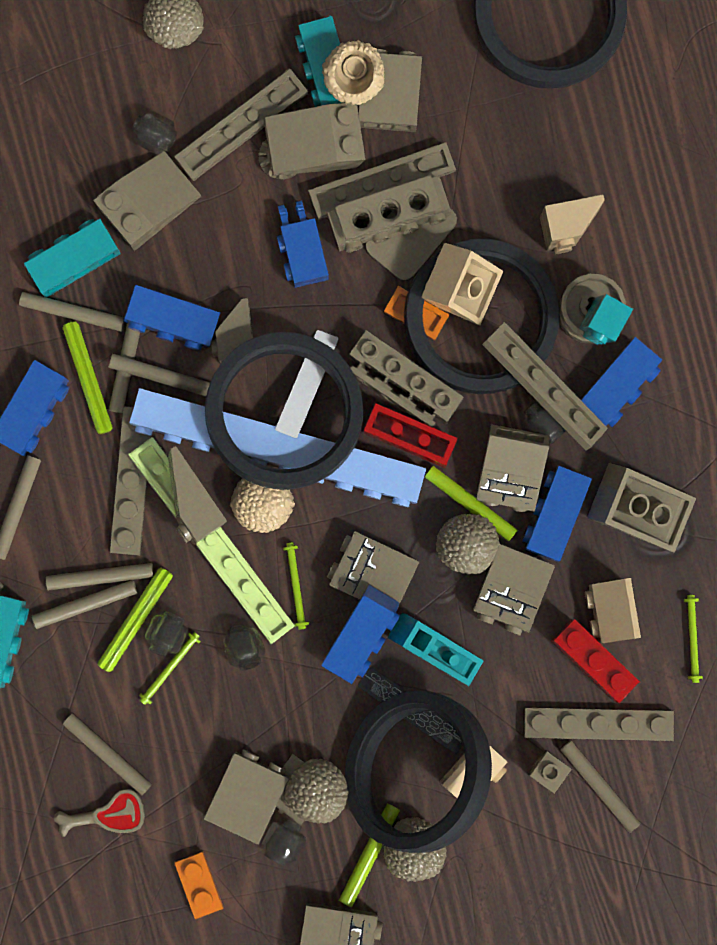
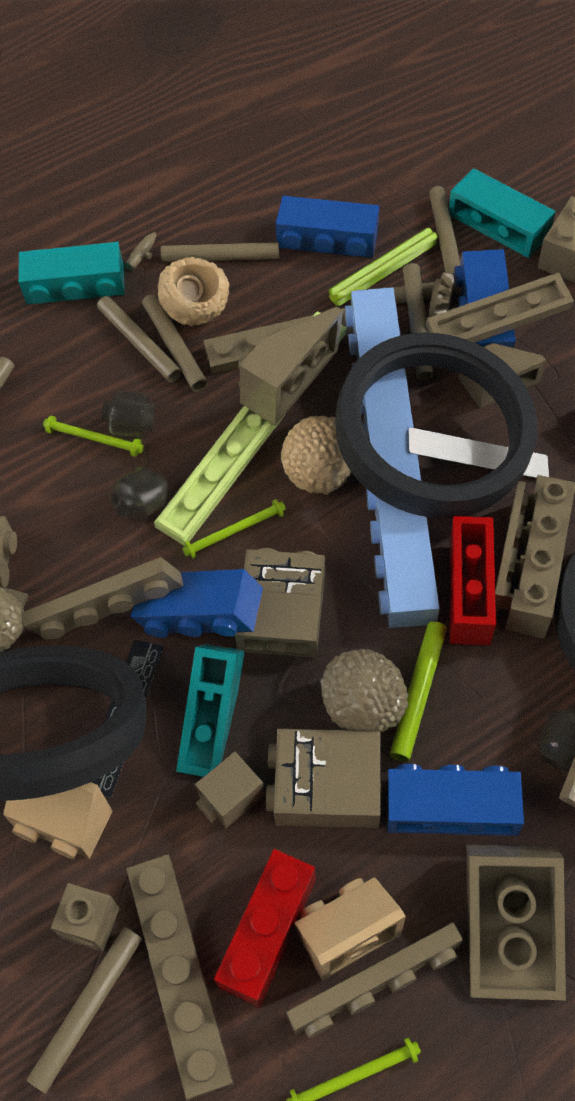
camera: 75 degrees right, 25 degrees down
(65, 546) = (193, 291): none -> tan hair
(135, 619) = (156, 389): lime axle -> none
(152, 350) = (441, 294): none -> dark tan gear
(198, 317) = (504, 310): none -> dark tan plate
(339, 689) = (103, 598): none -> dark tan plate
(499, 656) = (229, 791): none -> dark tan brick
(512, 468) = (488, 713): dark tan brick -> none
(647, 593) = (358, 991): none -> dark tan plate

